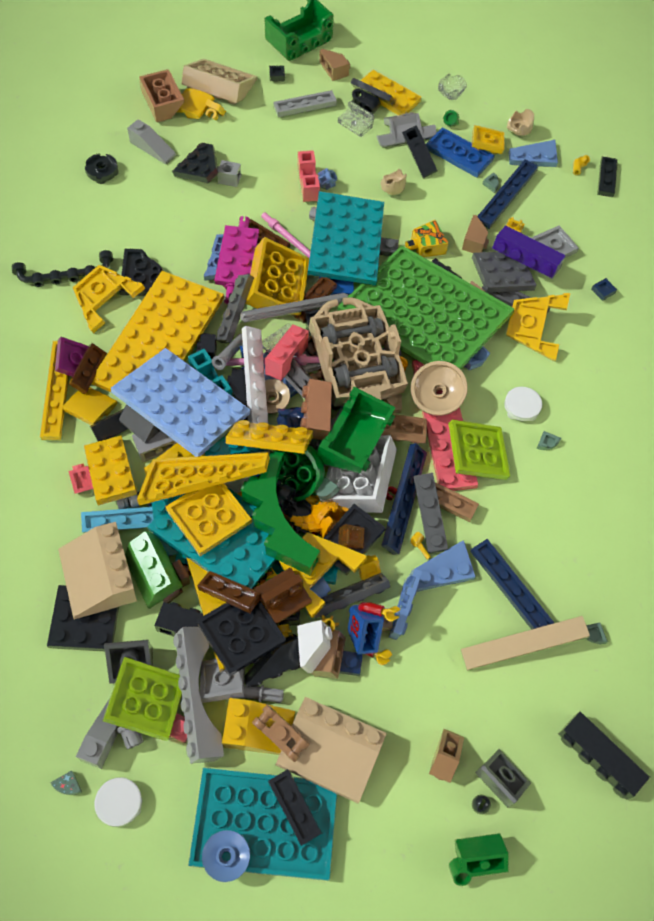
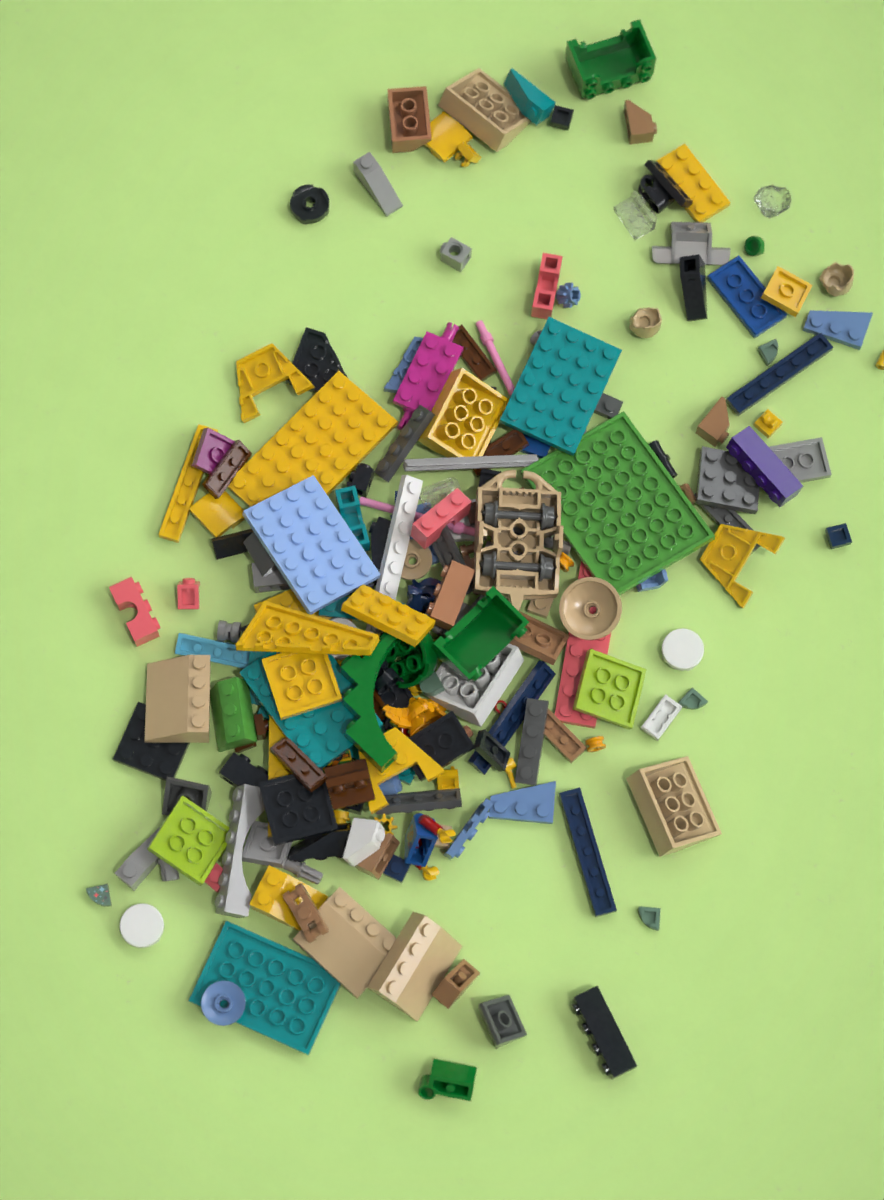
camera: 20 degrees right, 10 degrees up
(25, 494) = (127, 595): none -> coral arch
(55, 276) = (221, 340): black bar -> none
(109, 470) = (219, 594): yellow plate -> none
(199, 164) = (424, 232): black plate -> none
(220, 361) = (380, 496): light grey pin -> none
(247, 64) = (528, 98): none -> teal slope
(295, 807) = (297, 982): black plate -> none
(305, 103) = (581, 174): light grey plate -> none
(351, 536) = (437, 745): clear orange slope -> none
(400, 528) = (491, 750): none -> black plate
(403, 750) = (415, 965): none -> tan slope
(428, 240) = (656, 413): torso -> none
(477, 801) = (475, 1041): black hinge -> none
(484, 499) = (595, 744): none -> light orange bush
(525, 643) = (573, 904): tan tile -> none
(529, 461) = (661, 717): none -> white plate
(571, 530) = (673, 805): none -> tan slope

